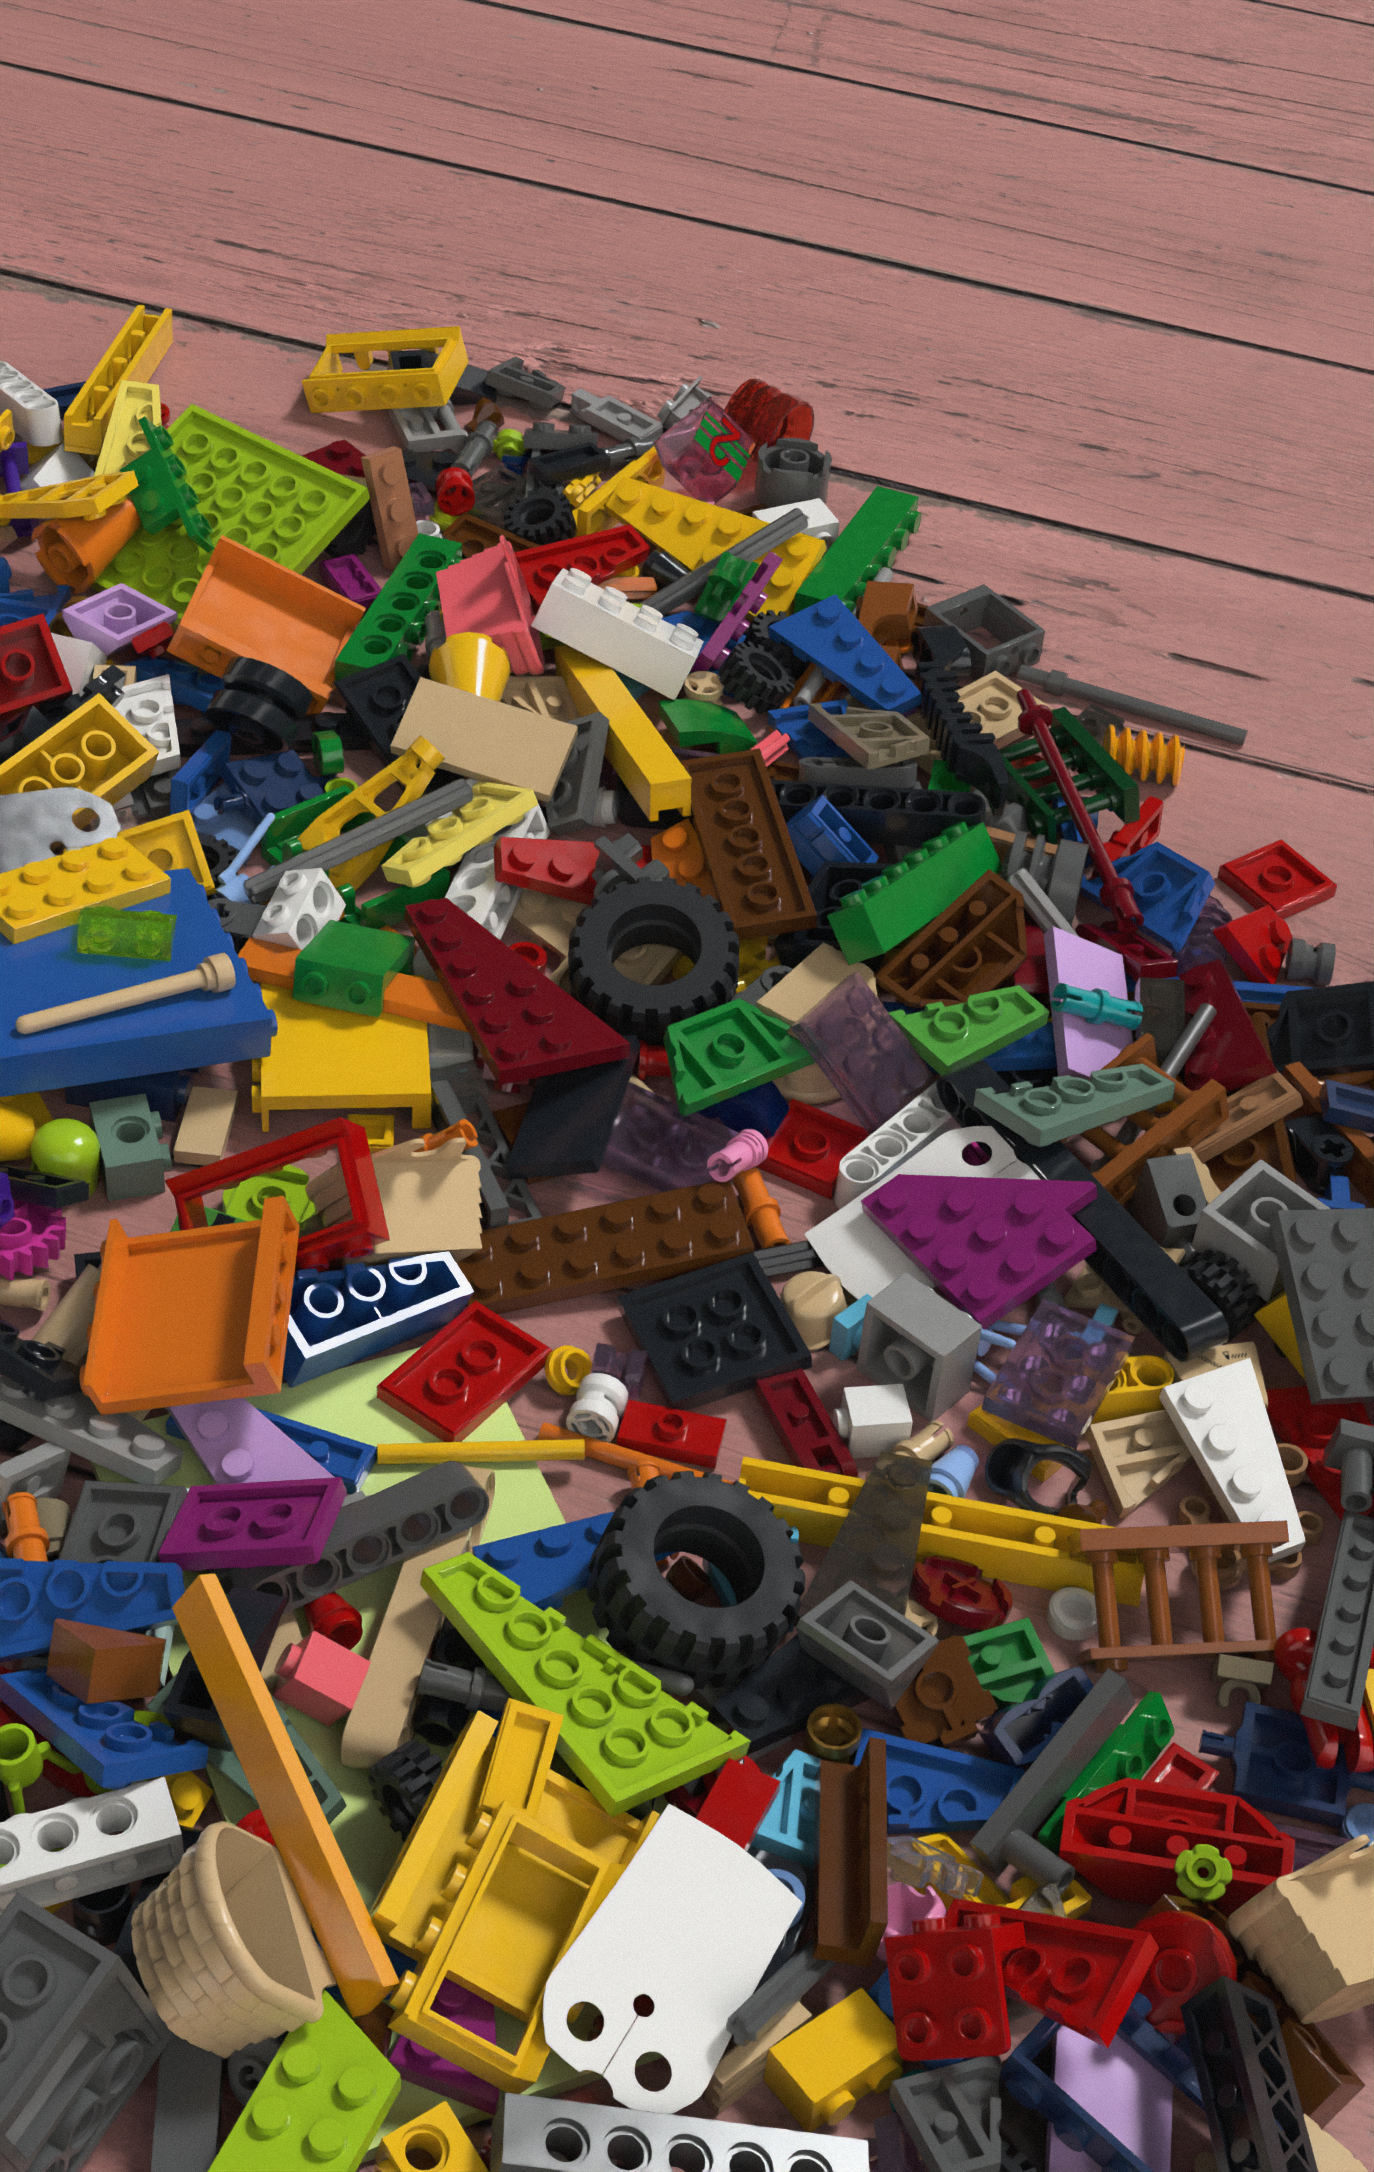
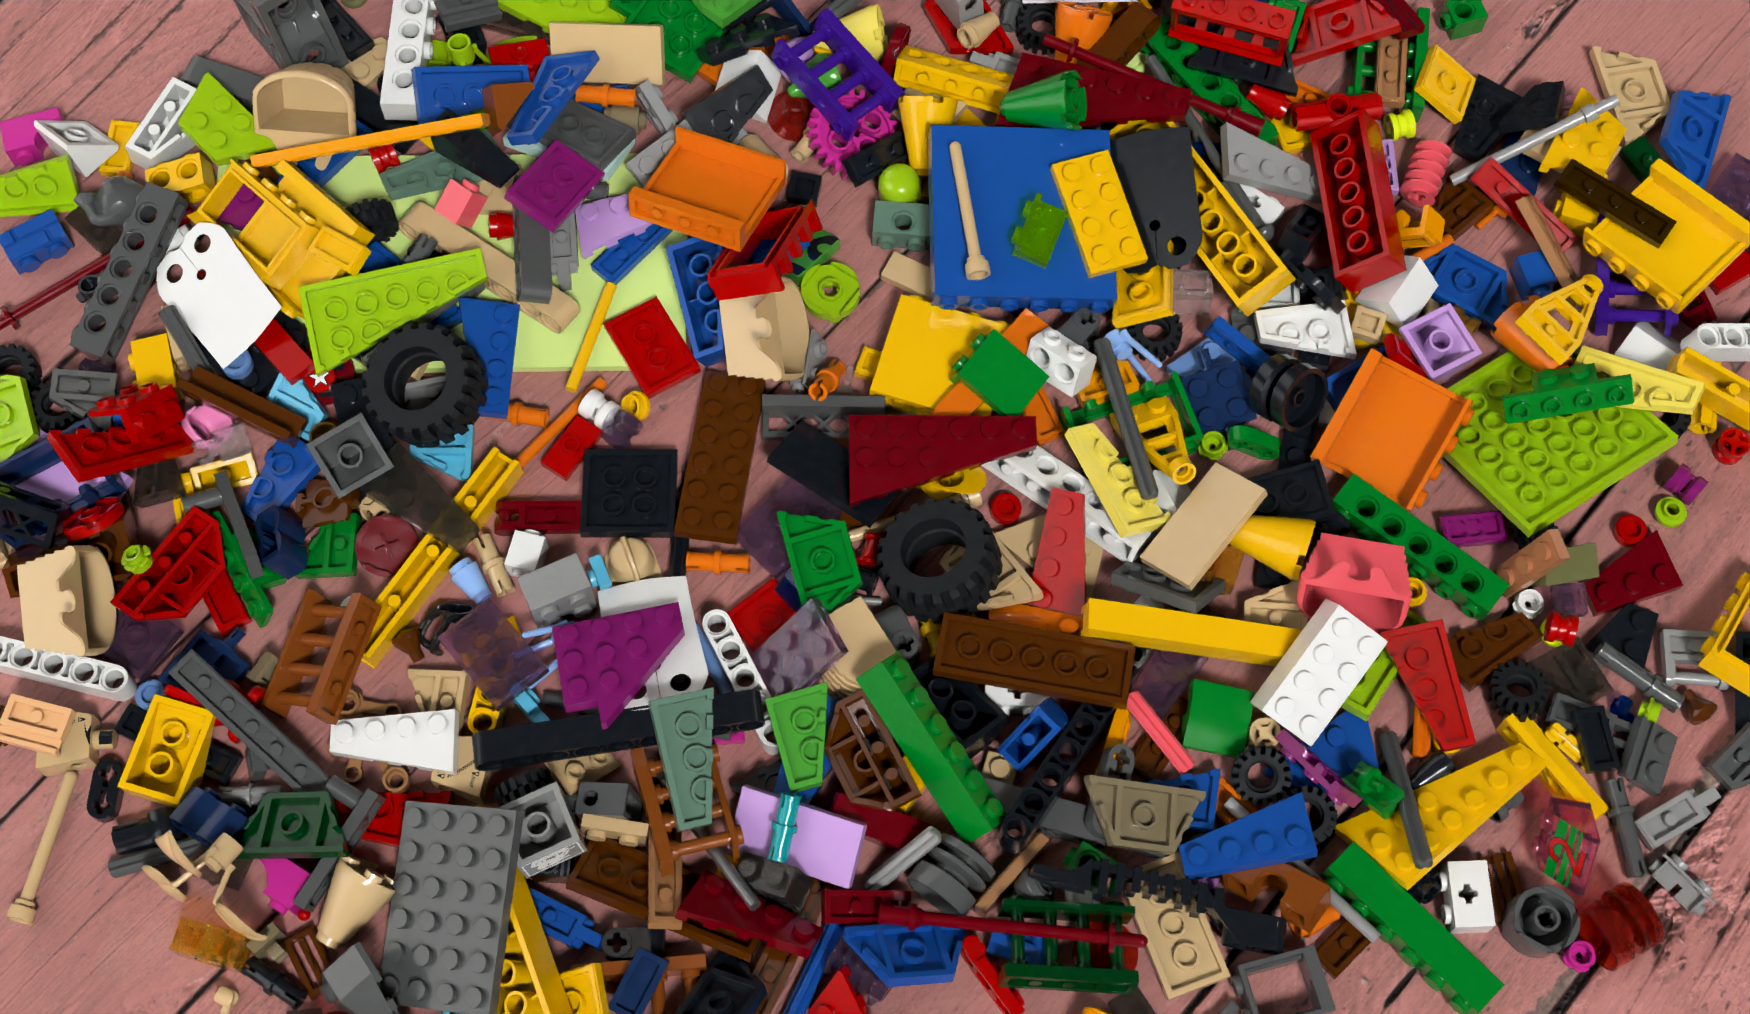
camera: 115 degrees right, 25 degrees up
(618, 861) = (1026, 567): dark grey hips -> none
(741, 1153) = (745, 543): bright pink pin -> none

